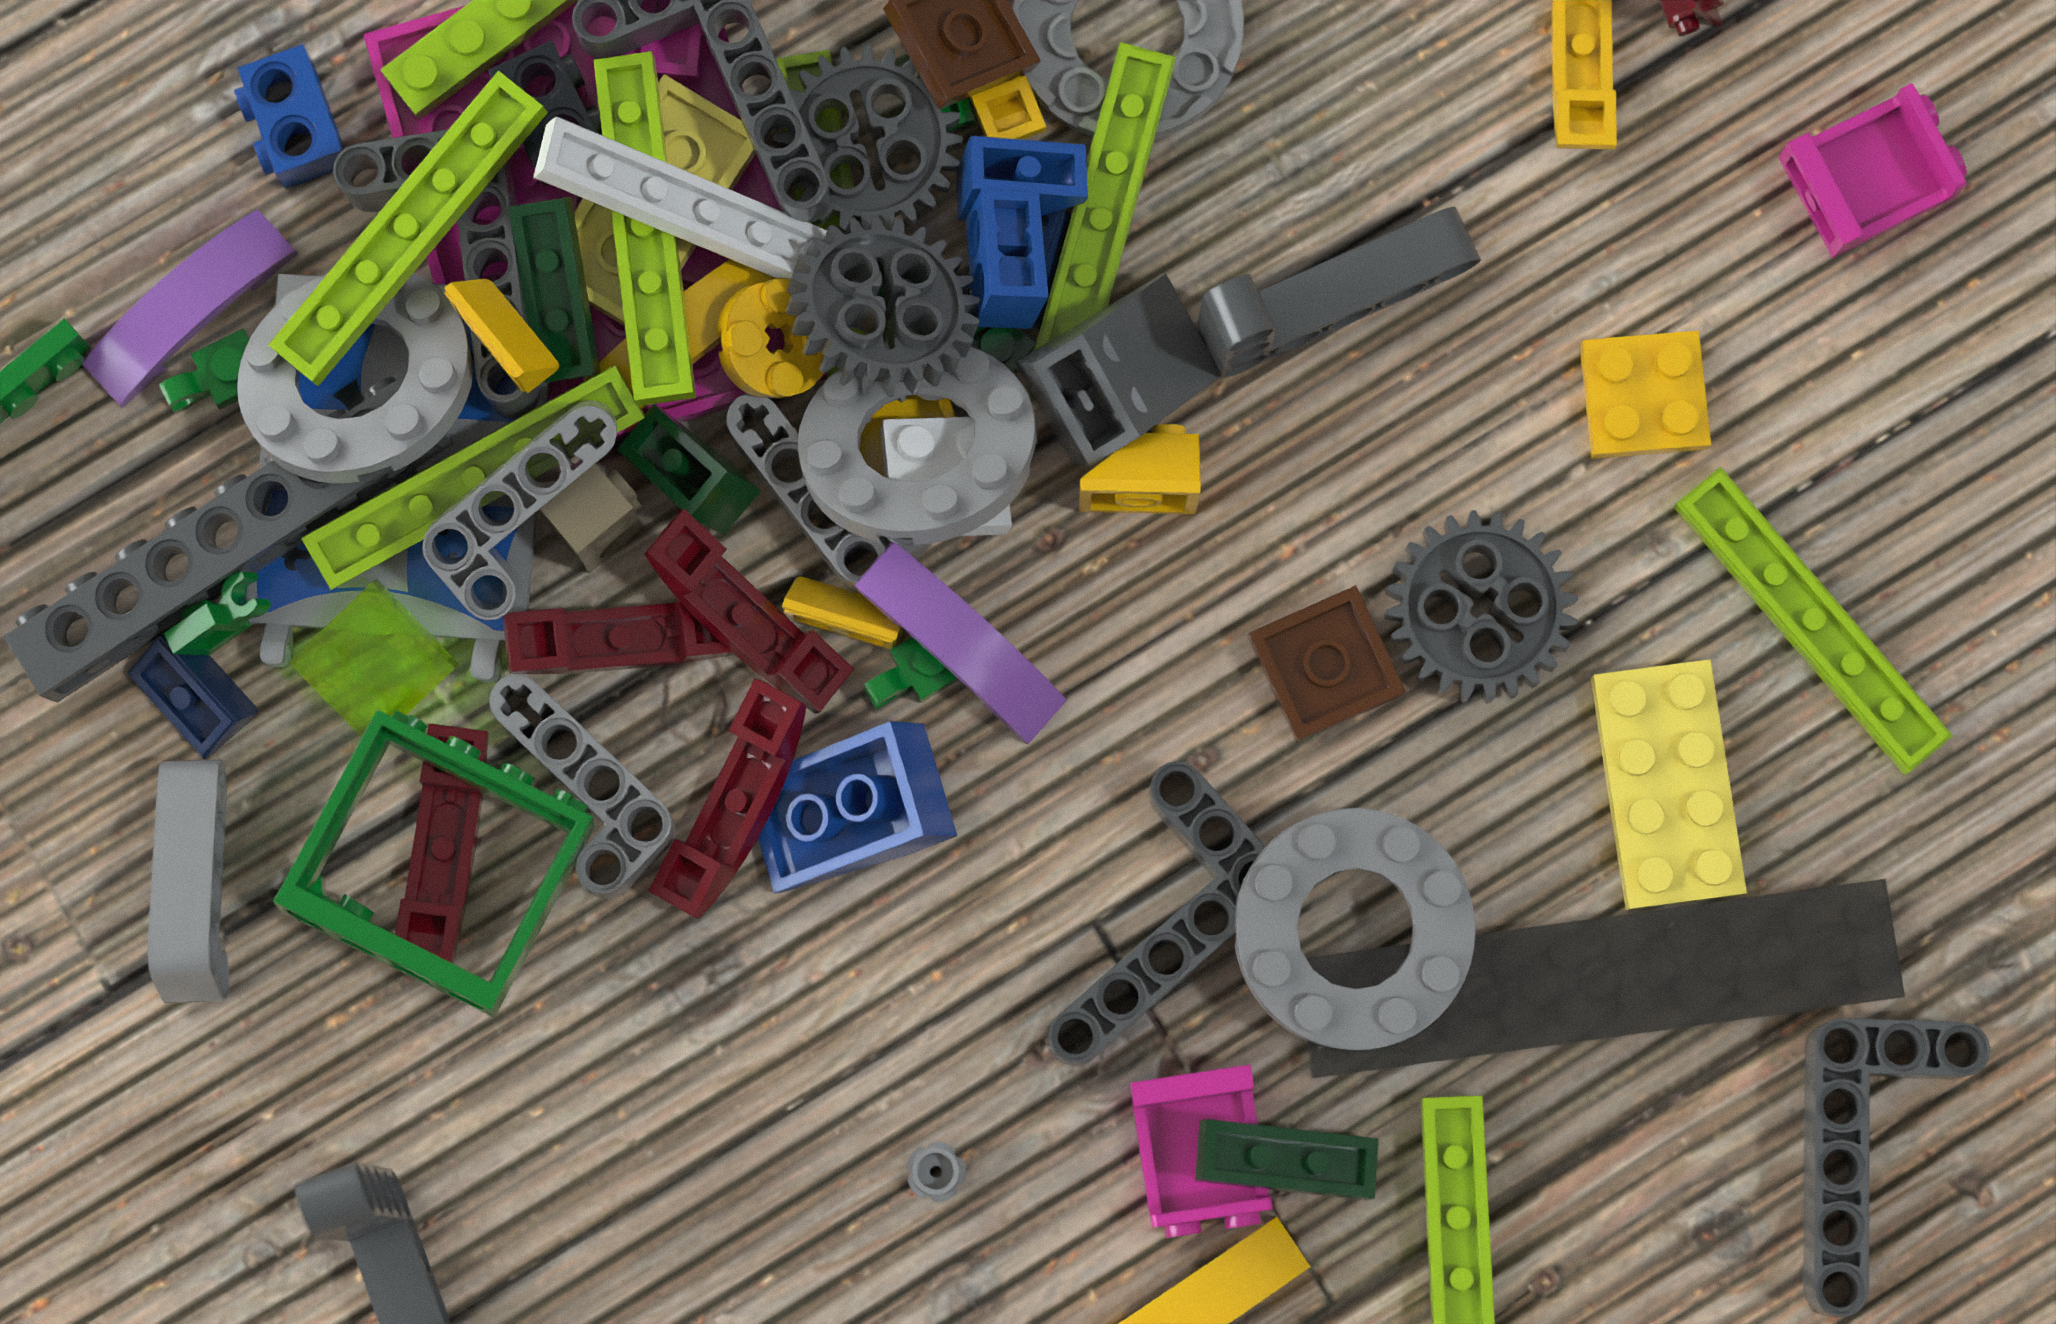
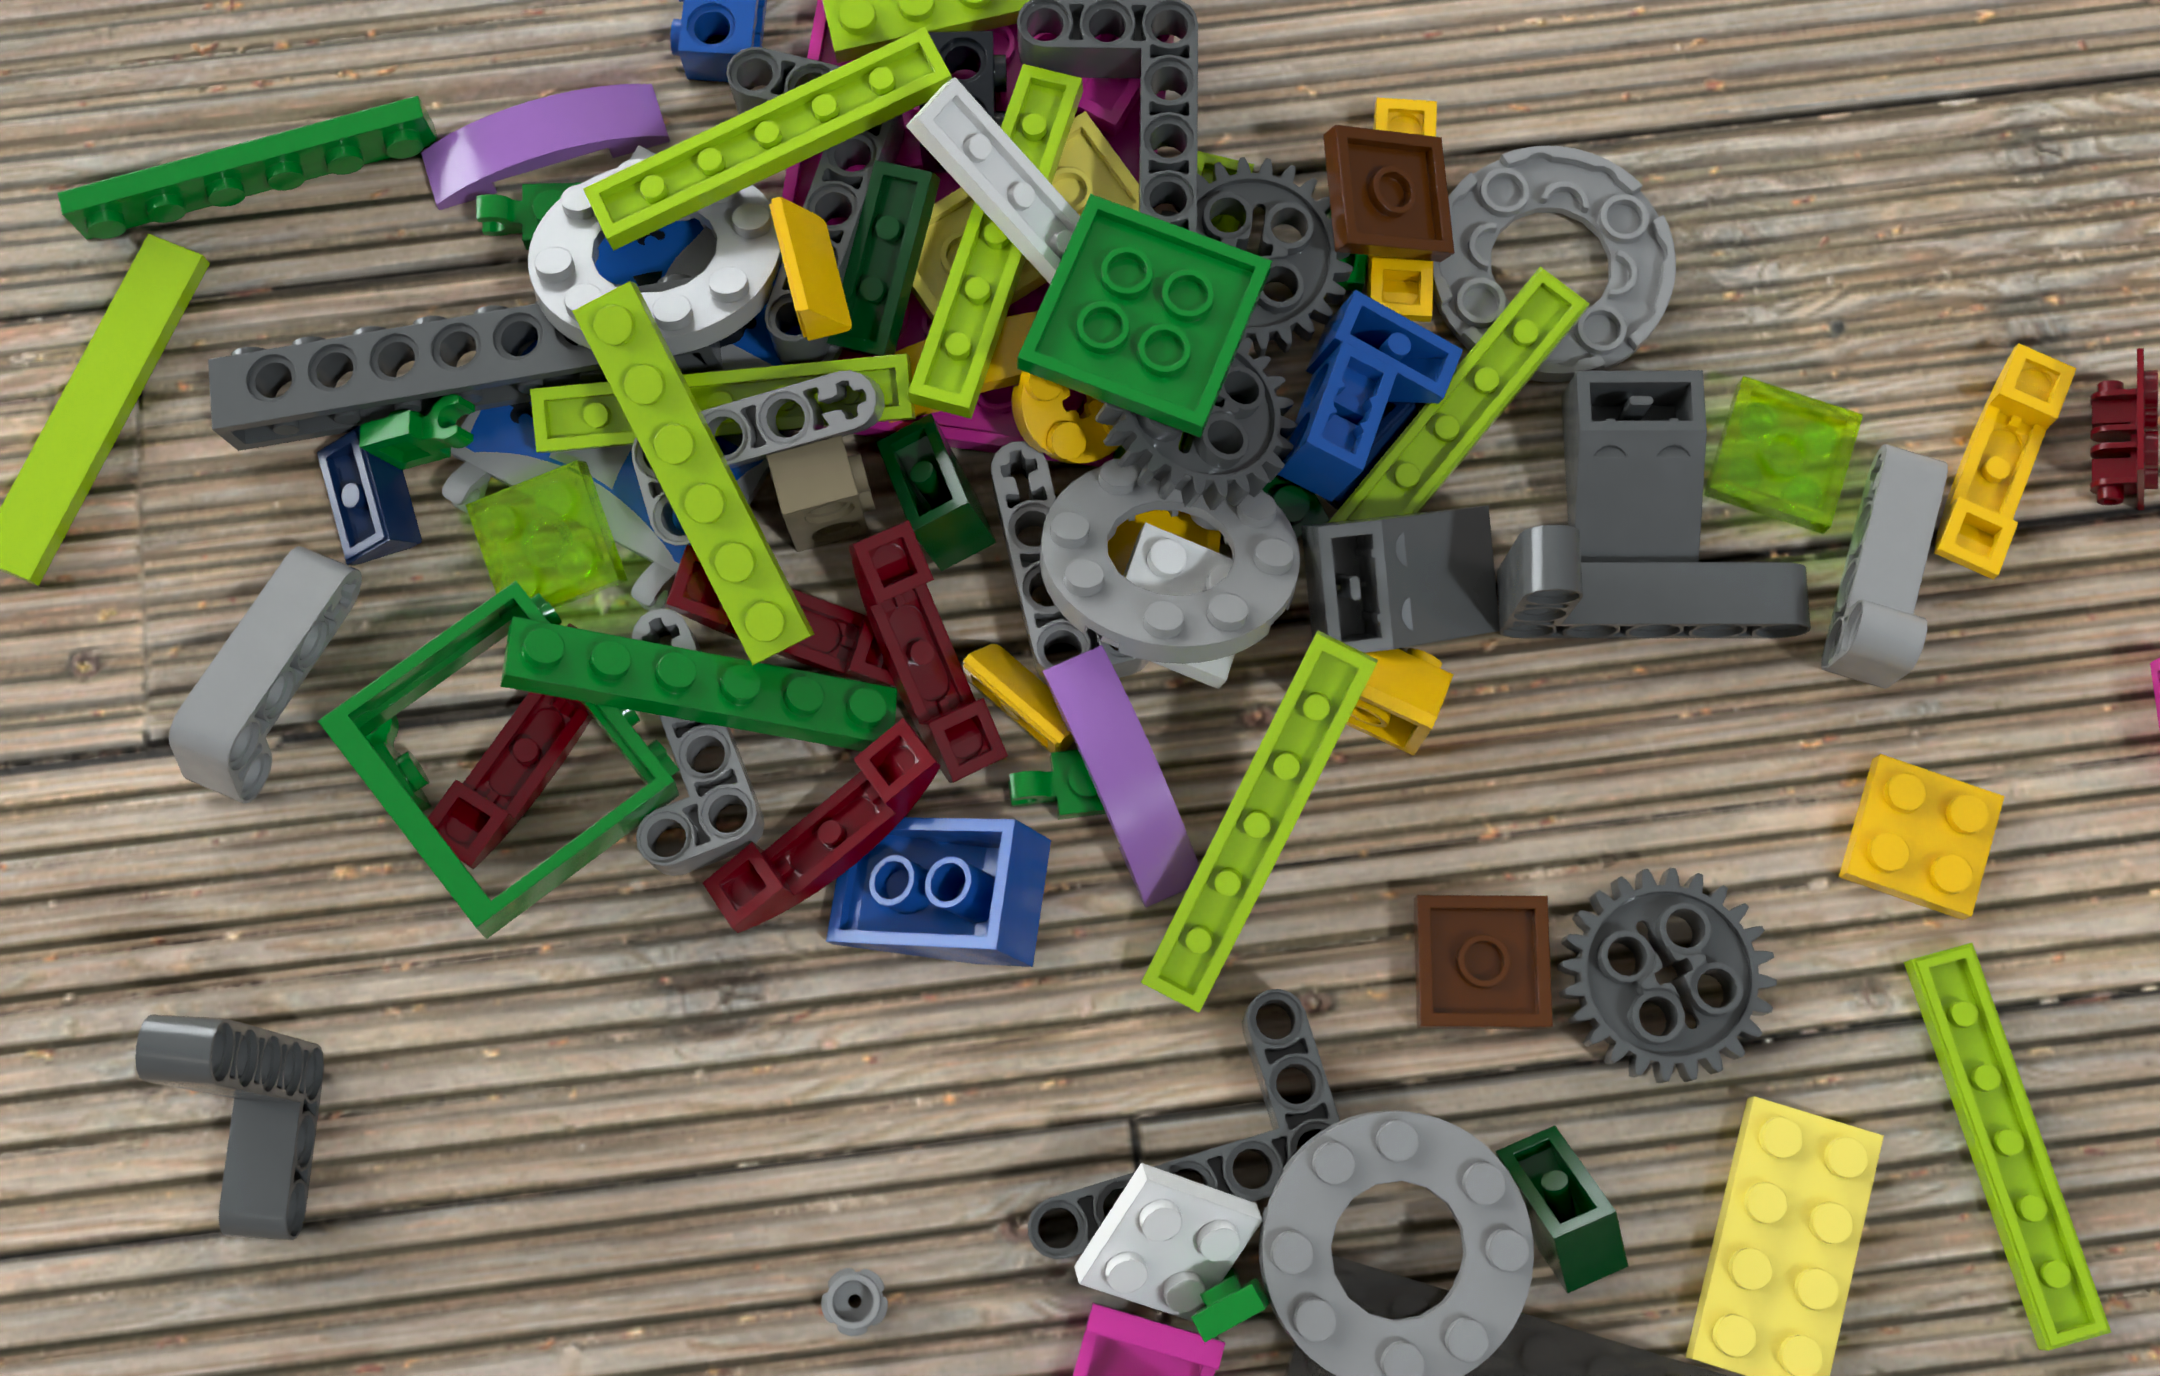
camera: 25 degrees right, 5 degrees down
(487, 552) = (693, 472): none -> lime plate
(571, 729) = (695, 685): none -> green plate
(807, 248) = (1144, 315): none -> green plate
(1091, 632) = (1259, 820): none -> lime plate
(1169, 1007) = (1167, 1242): none -> white plate
(1240, 1033) = (1229, 1305): none -> green plate
(1275, 184) = (1635, 463): none -> dark grey slope
(1397, 113) = (1783, 455): none -> clear neon green plate
(1477, 835) = (1566, 1209): none -> dark green slope
(1531, 233) = (1873, 620): none -> light grey beam

